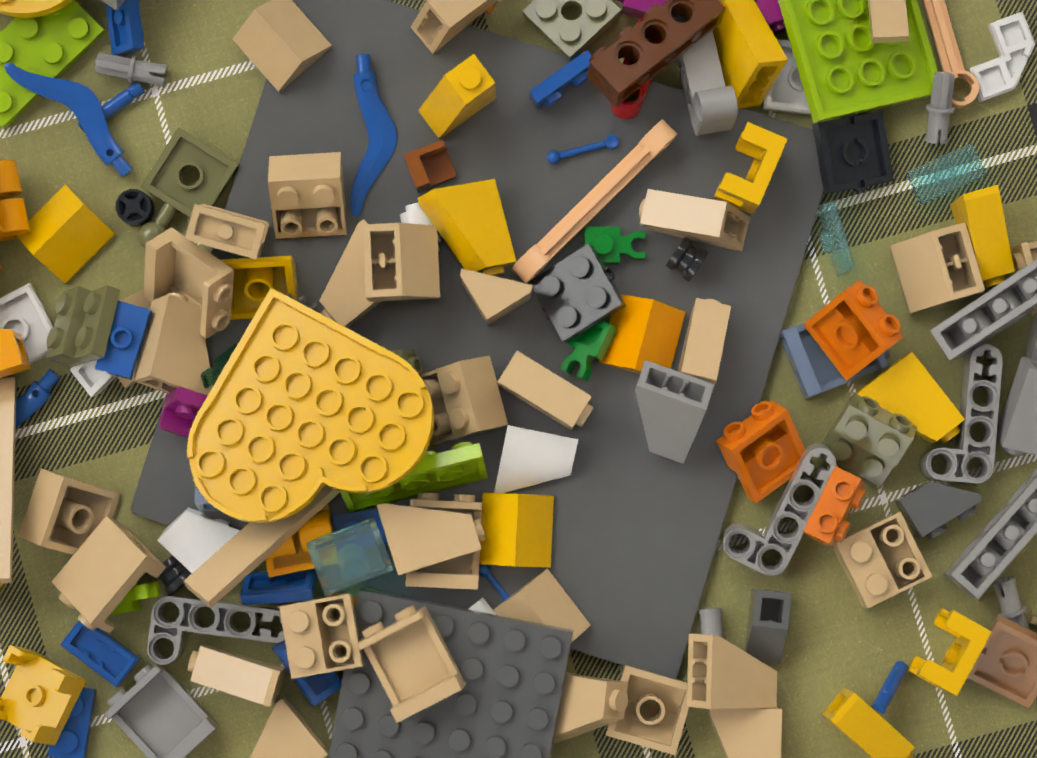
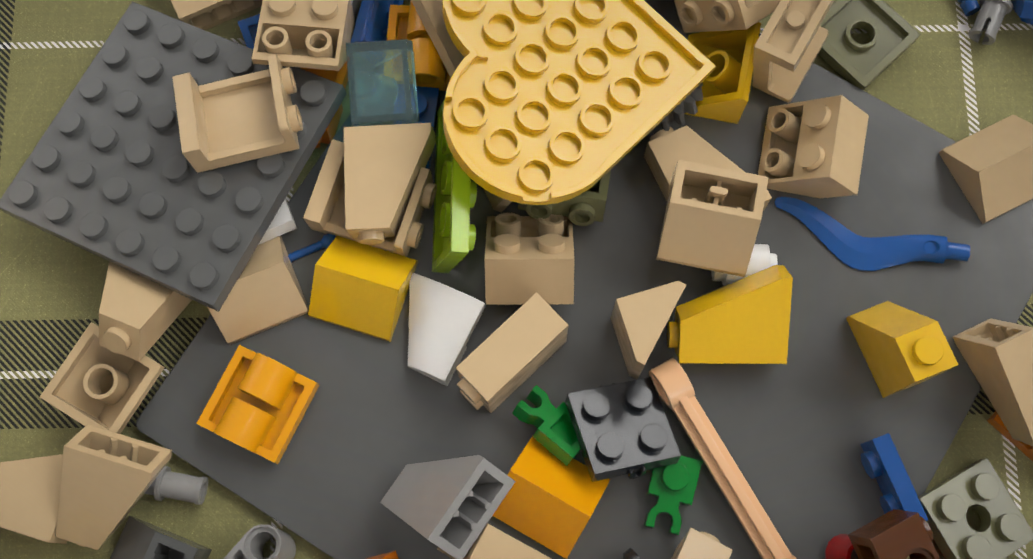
camera: 110 degrees right, 10 degrees down
(430, 165) = (819, 295): dark orange panel -> none
(610, 142) = (800, 523): blue hinge -> none
(633, 583) = (258, 404): none -> light orange plate

